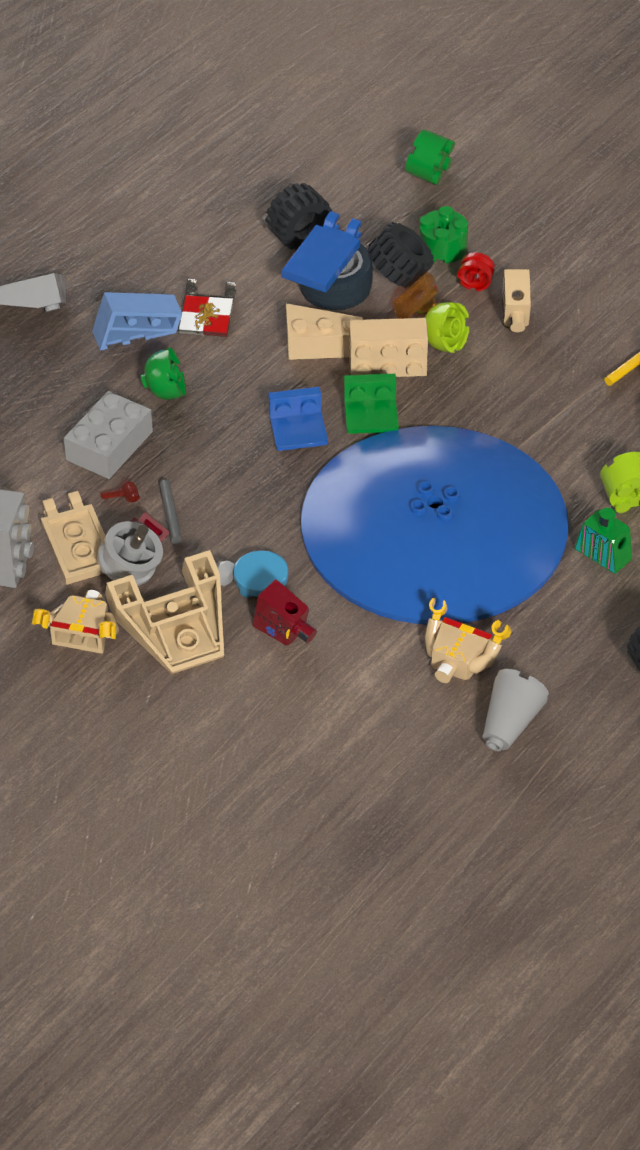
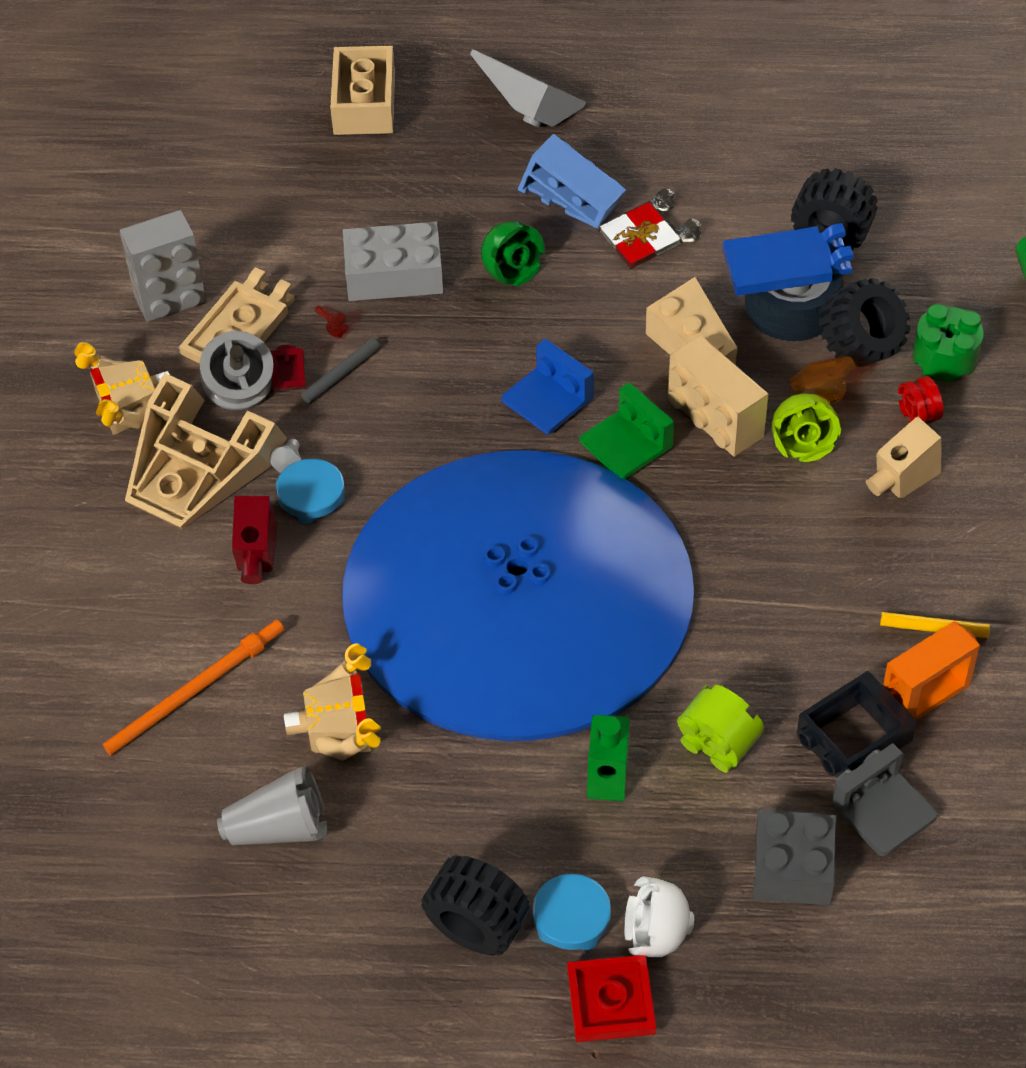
camera: 55 degrees right, 5 degrees up
(360, 667) = (249, 647): none -> orange bar

